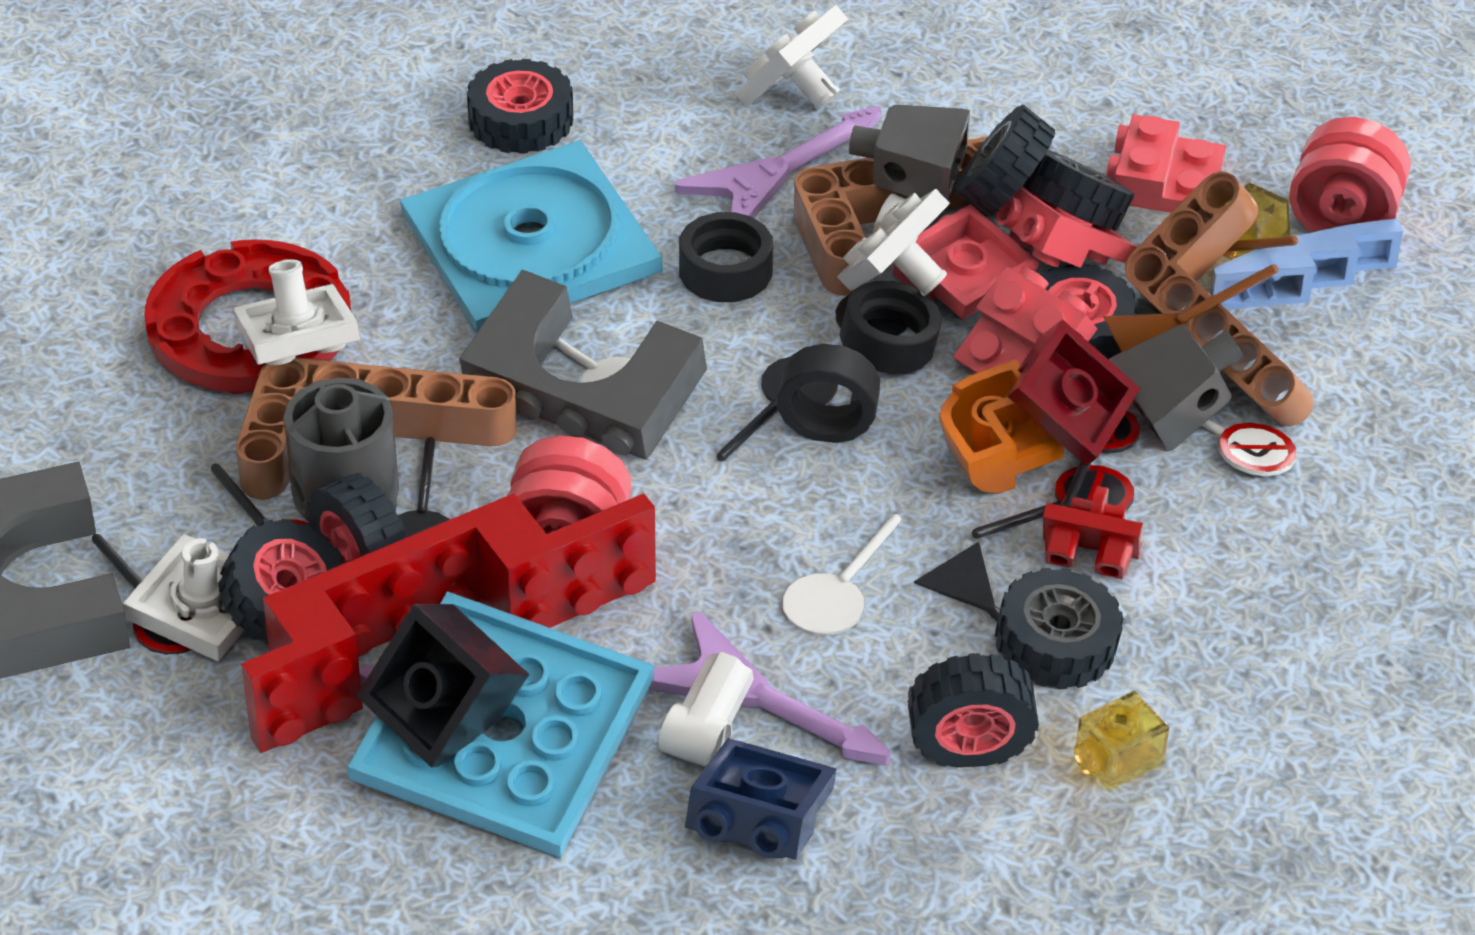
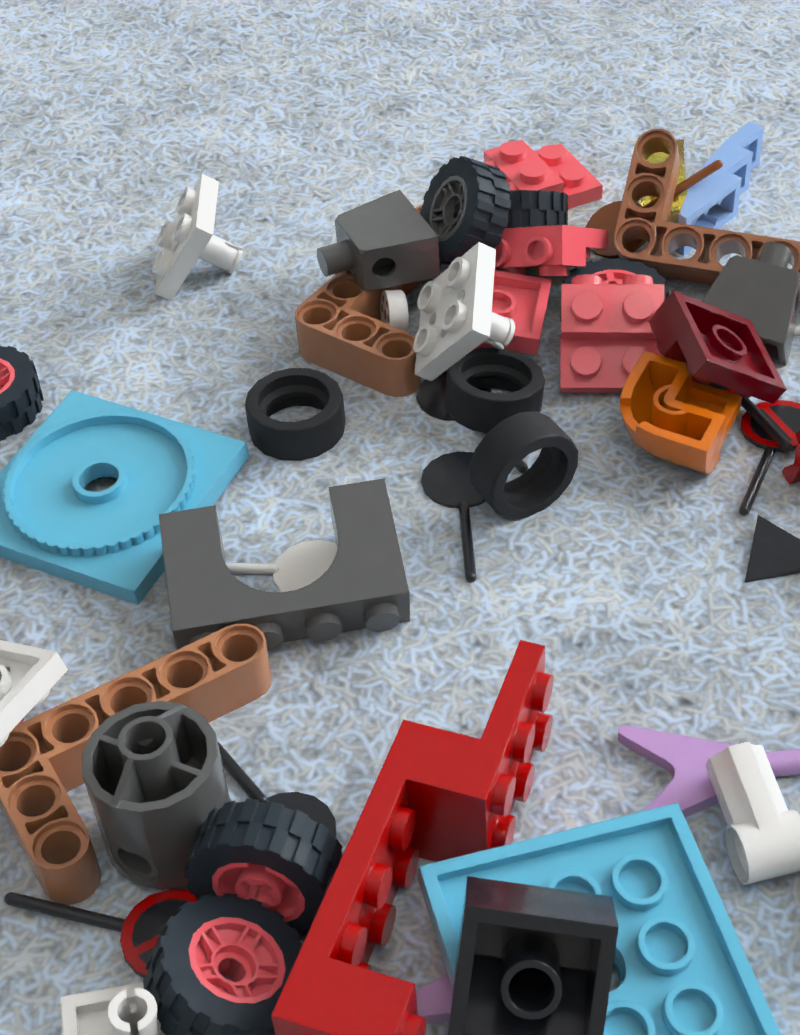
camera: 35 degrees left, 0 degrees up
(568, 480) = (421, 677): coral wheel -> none
(756, 182) = (246, 346): lavender piece -> none
(831, 602) = (698, 645): white piece -> none
(1136, 329) = (695, 277): dark orange piece -> none
(1349, 175) = (692, 105): coral wheel -> none

